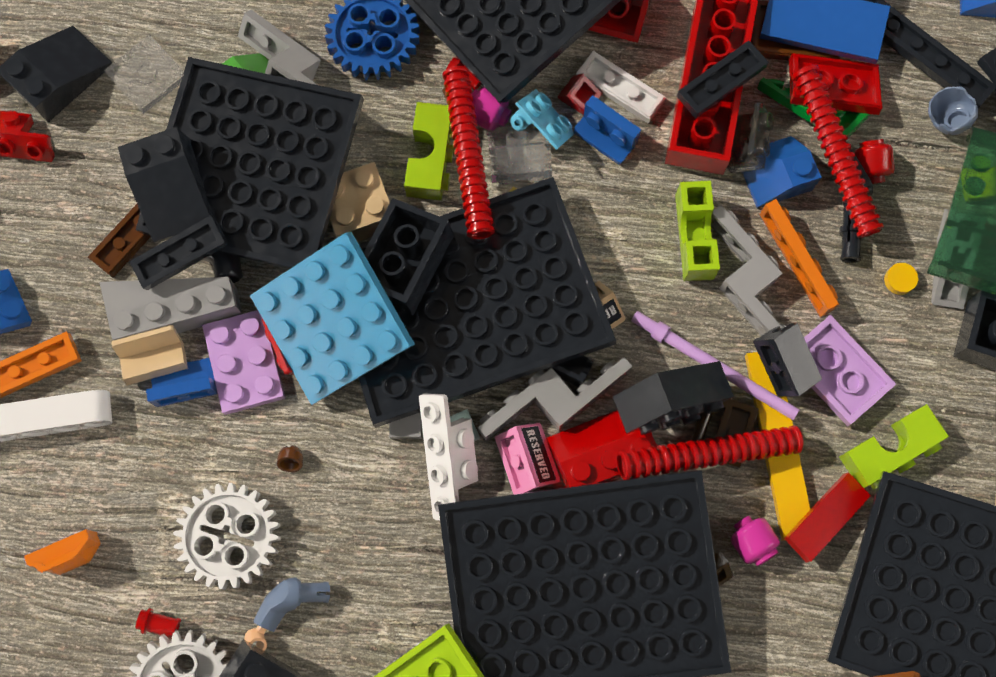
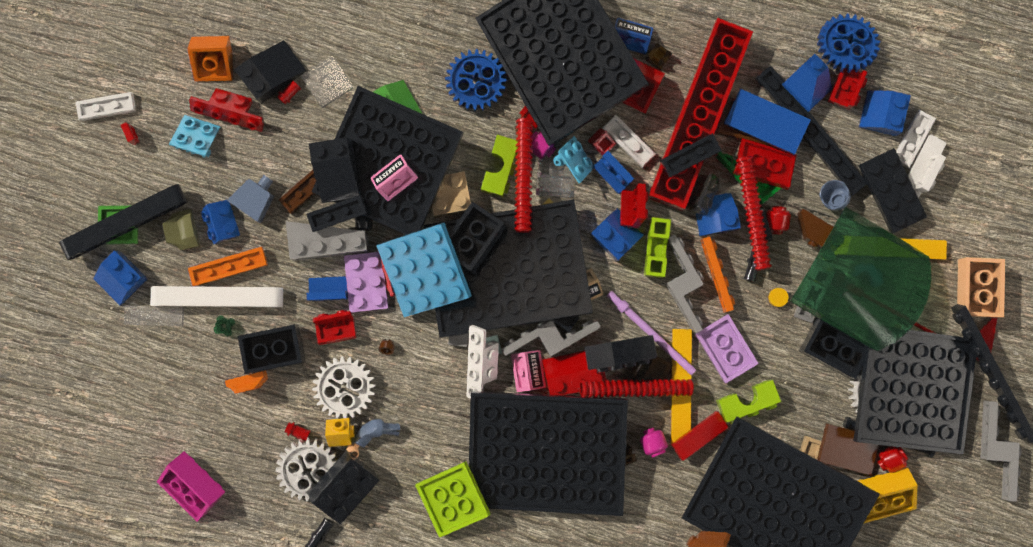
camera: 10 degrees right, 10 degrees up
(10, 466) = (219, 325): none -> clear green plate
(47, 259) = (253, 198): none -> sand blue torso
(88, 97) = (289, 92): none -> red pin
(98, 490) = (271, 349): none -> black brick
(150, 354) = (311, 270): tan panel -> none
(200, 439) = (335, 327): none -> red bracket
(228, 612) = (339, 432): none -> yellow brick
(263, 182) = (393, 178): none -> bright pink panel
(285, 55) = (422, 94): light grey bracket -> none
(627, 225) = (615, 238): none -> blue slope
(649, 175) = (633, 206): none -> red bracket
(787, 360) = (694, 340): hinge -> none
(932, 166) = (813, 229): none -> reddish brown slope

